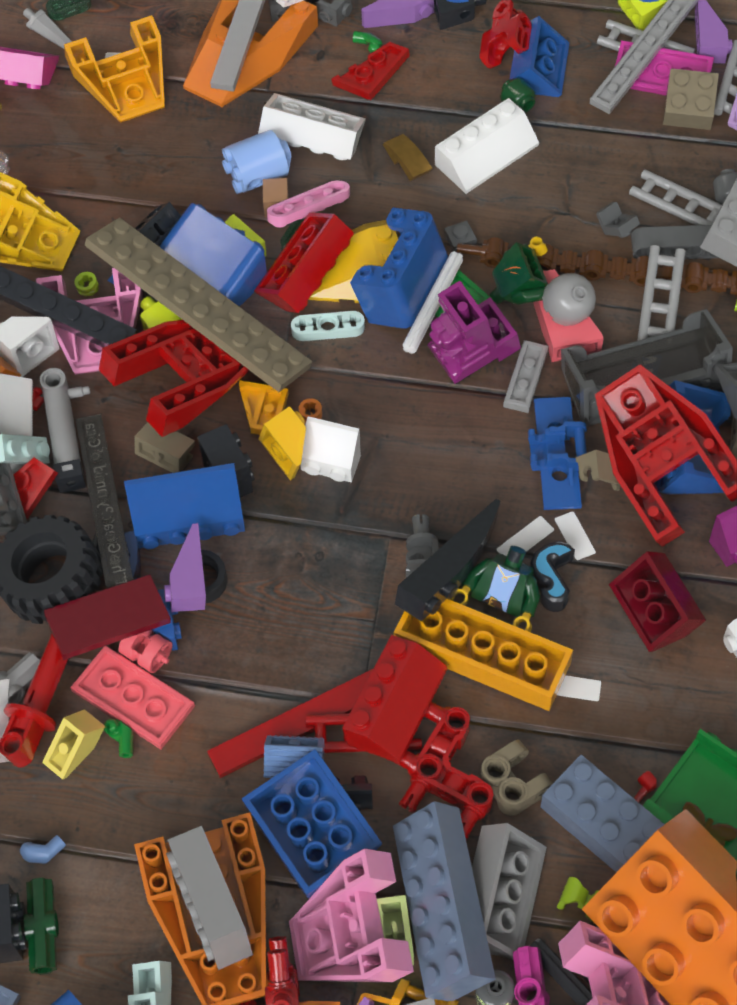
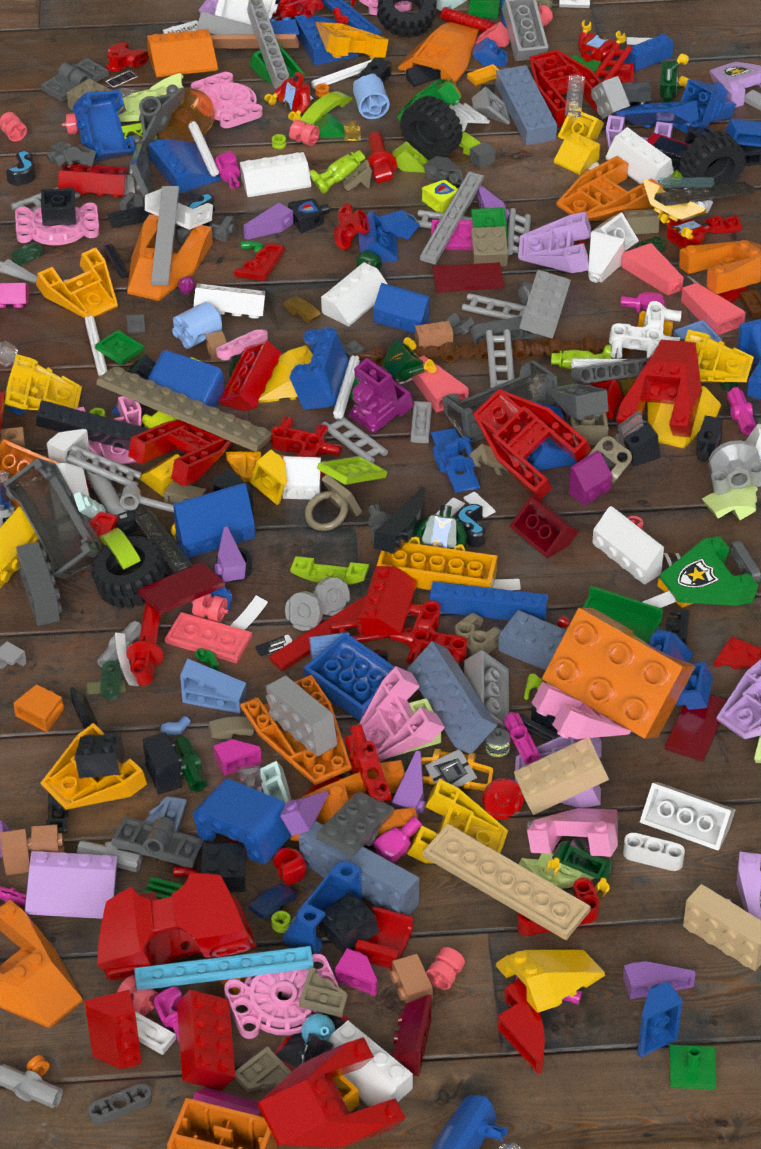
camera: 15 degrees left, 15 degrees down
(35, 533) = (120, 547): none -> lime slope
(56, 366) = (94, 466): none -> light grey bar
(73, 742) = (174, 665): light yellow slope -> none
(86, 440) = (132, 503): none -> light grey piece
(108, 798) = (211, 688): none -> medium blue wedge
(108, 926) = (235, 754): none -> dark pink slope
(113, 870) = (226, 727): none -> dark tan slope
(114, 977) = (249, 776): none -> clear slope
(116, 168) = (94, 338): none -> white axle
(136, 399) = (160, 475): none -> yellow slope
(145, 177) = (119, 347): none -> green tile
(177, 142) = (135, 323): none -> dark grey plate
(182, 35) = (116, 261): none -> black axle
(198, 668) = (250, 613): none -> white sticker
(221, 729) = (273, 645): none -> sticker
(263, 90) = (186, 285): none -> magenta plate
(274, 685) = (304, 610): none -> light grey tile
(317, 667) = (332, 595): none -> light grey tile
(320, 334) = (260, 419): light aqua beam -> none
(329, 619) = (308, 570): none -> lime slope
(349, 383) = (302, 442): none -> red pin
(375, 495) = (340, 497): none -> dark tan tile
(402, 451) = (352, 470): none -> lime tile
(420, 401) = (355, 447): none -> light grey bar
(542, 184) = (401, 308): none -> blue slope
(544, 723) = (487, 601): none -> blue brick
(569, 299) = (440, 366): light grey cylinder -> none
(574, 41) = (399, 223): none -> blue slope
(577, 234) = (433, 334): none -> nougat brick
(650, 141) = (468, 277): none -> dark red tile
(700, 55) = (489, 218): none -> green tile

